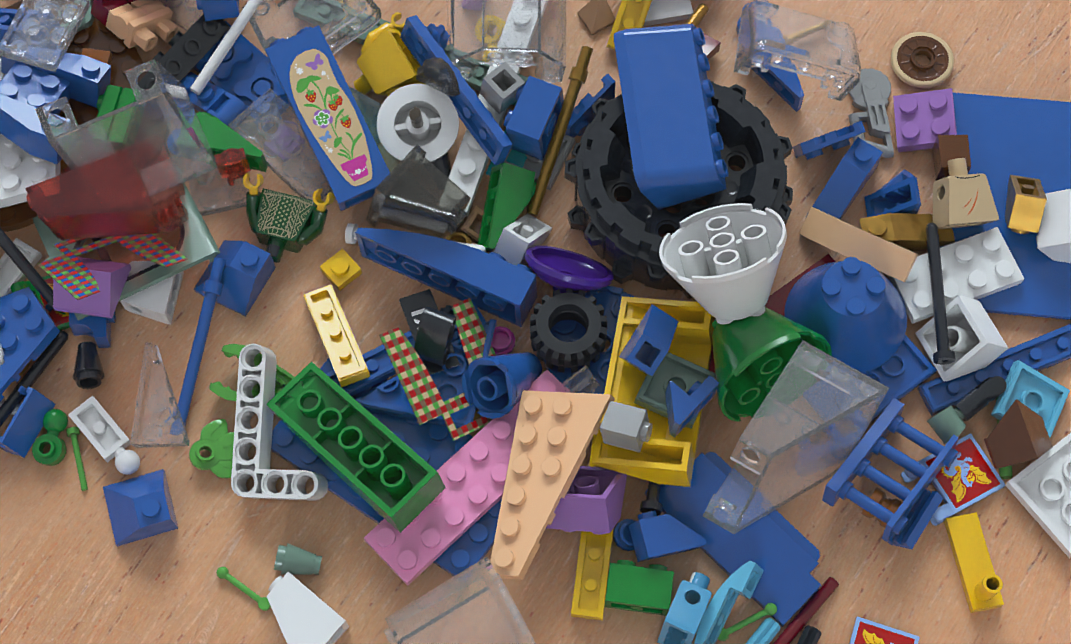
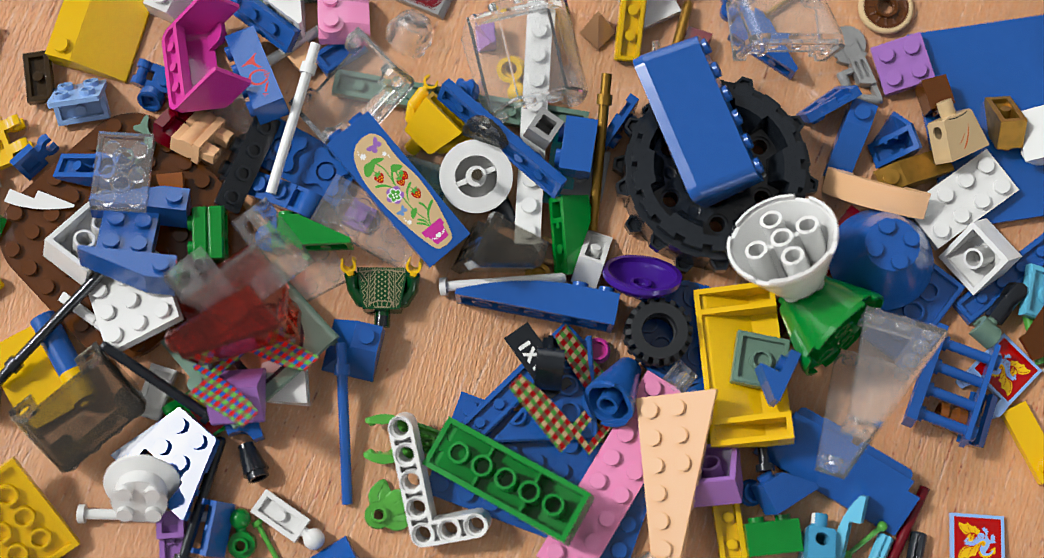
camera: 20 degrees left, 10 degrees up
(156, 412) = (325, 489): clear wing -> none
(232, 164) = (327, 254): clear red plate -> none
(336, 336) = (460, 384): tile -> none
(341, 269) = (443, 320): yellow plate -> none
(625, 426) = (734, 412): light grey brick -> none
(650, 341) = (732, 329): blue slope -> none
(943, 354) = (948, 205): black bar -> none

